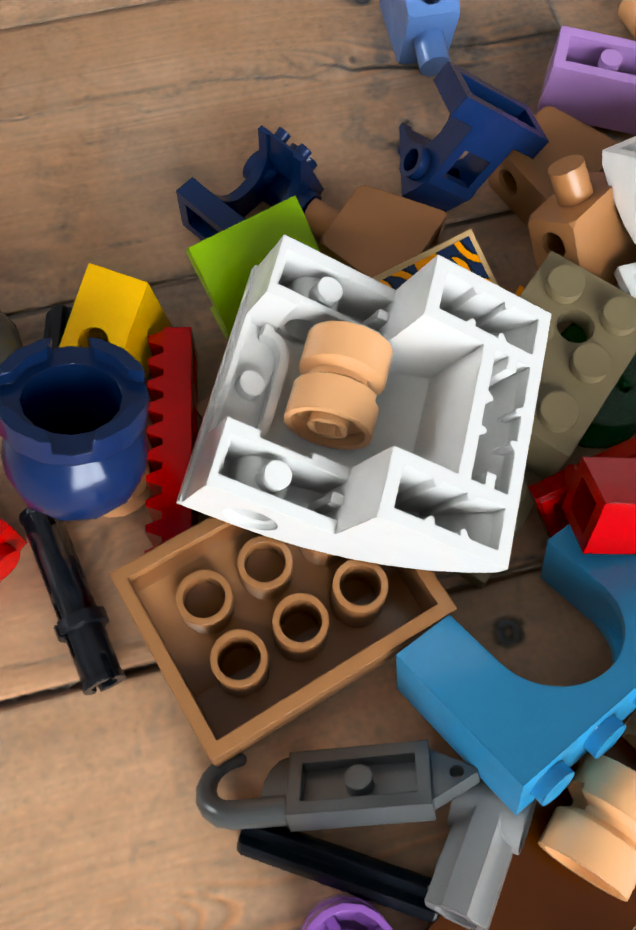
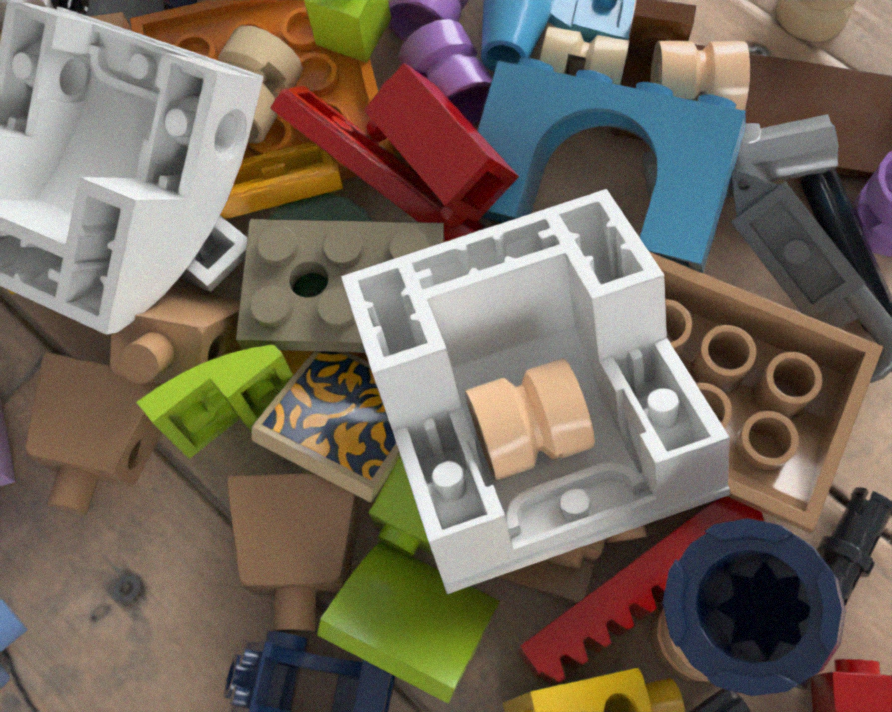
camera: 115 degrees left, 0 degrees up
(479, 122) = (133, 489): dark blue tile -> none
(513, 219) = (216, 395): none -> lime slope

